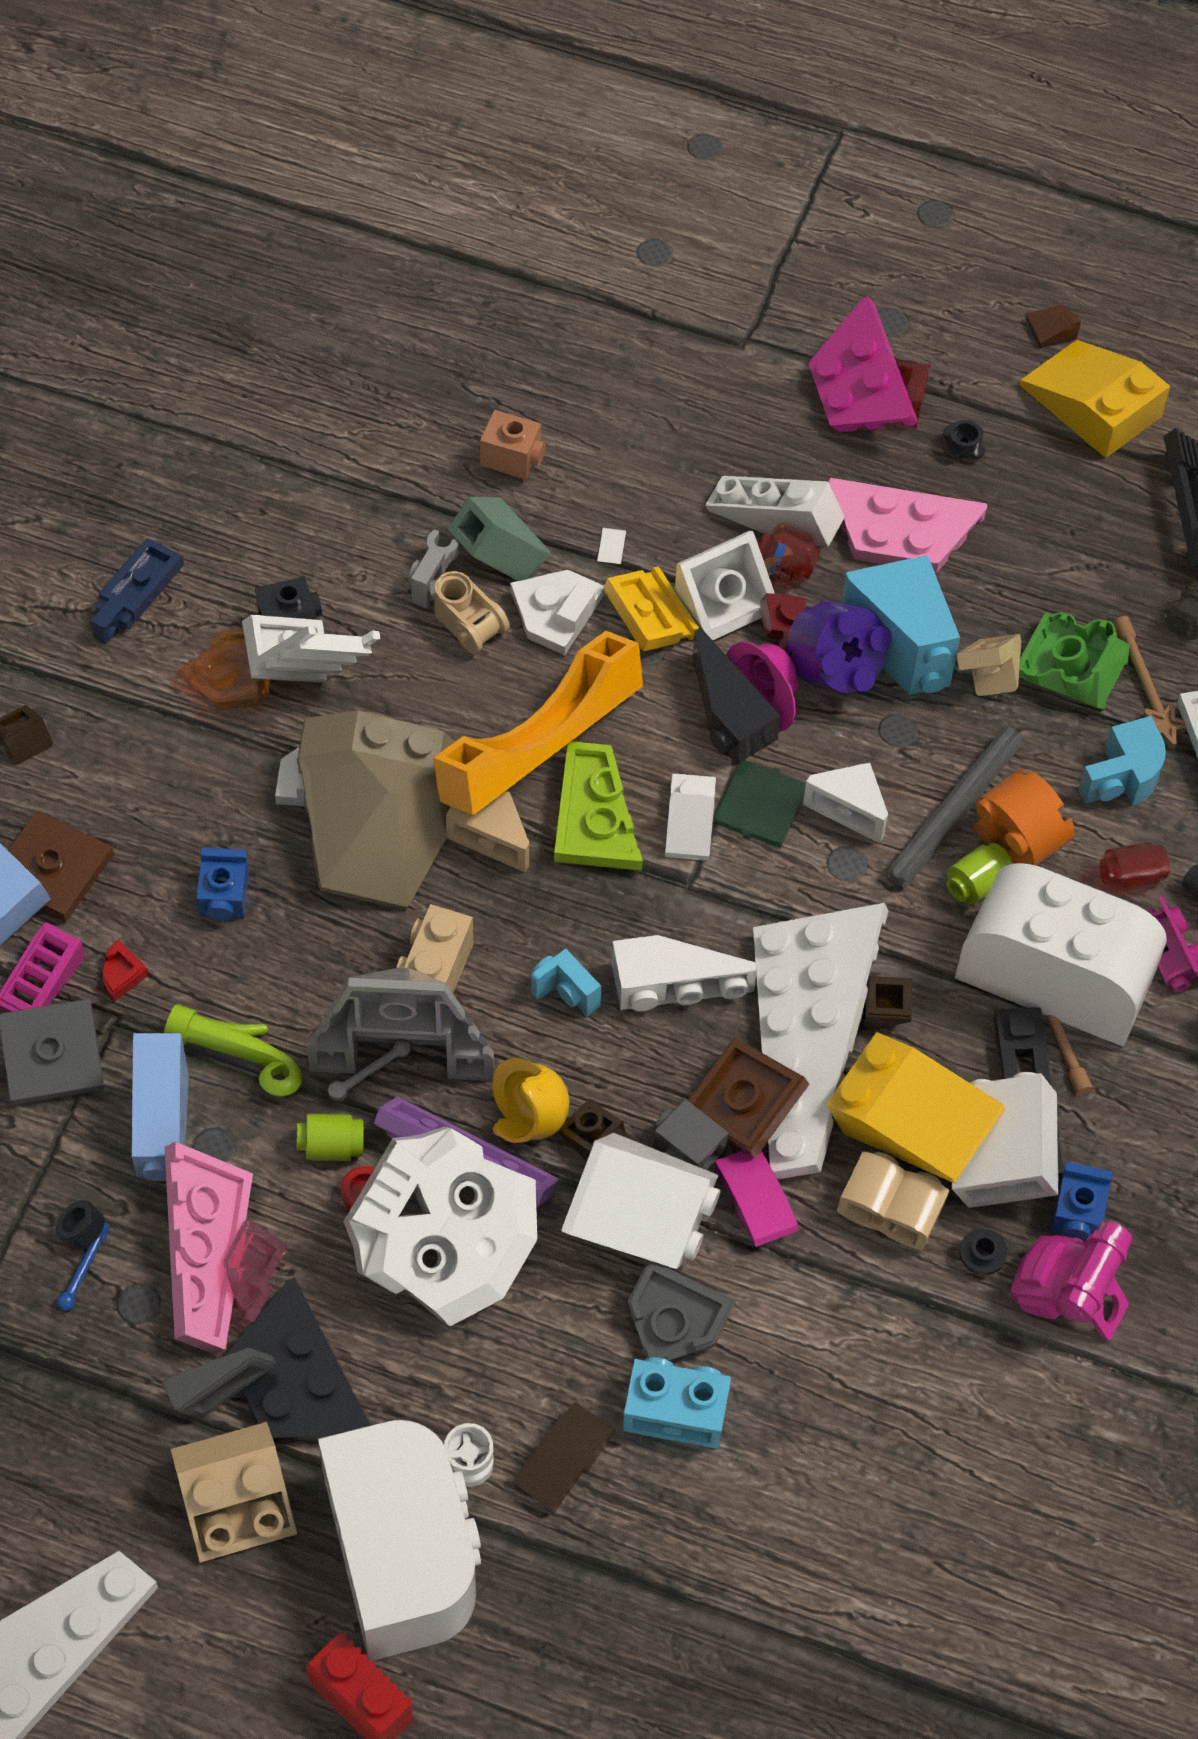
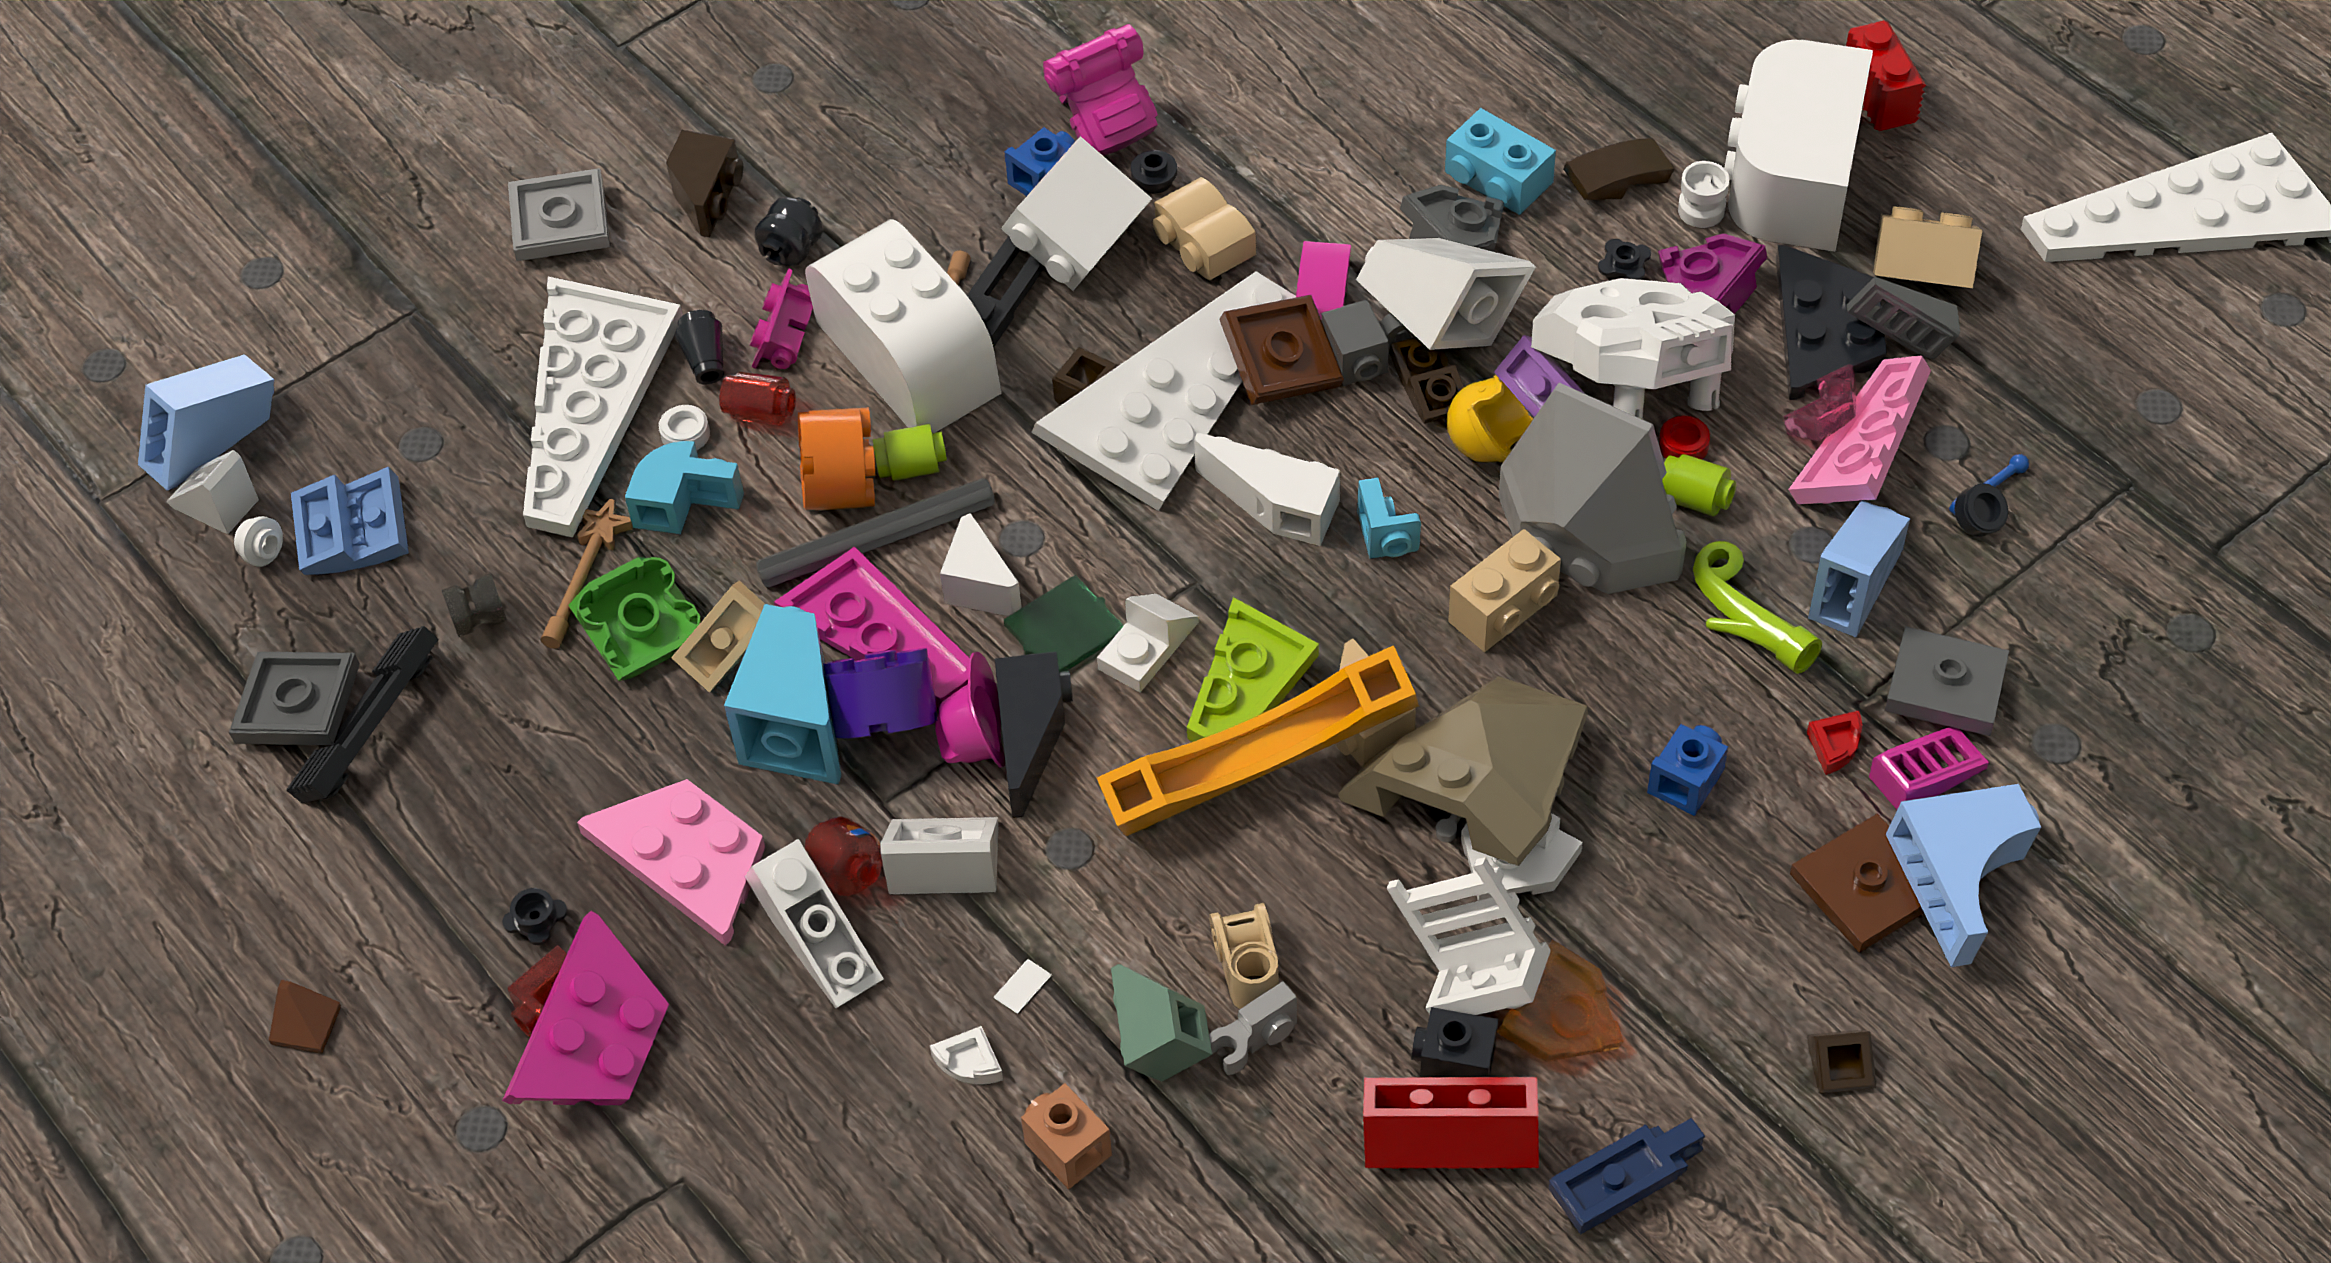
camera: 145 degrees left, 5 degrees down
(263, 552) = (1451, 1122): none -> red brick
(421, 1366) = (1719, 268): none -> magenta plate
(503, 1364) = (1624, 260): none -> black plate
(556, 607) = (1136, 925): white plate -> none
(613, 484) = (968, 1058): none -> white tile
(650, 608) = (1037, 870): yellow plate -> none
(778, 616) = (904, 788): dark red plate -> none
(904, 733) = (868, 614): none -> dark pink wing
(913, 1108) = (1140, 261): yellow slope -> none
(1099, 394) = (341, 896): yellow slope -> none
(1173, 827) = (684, 424): none -> white tile

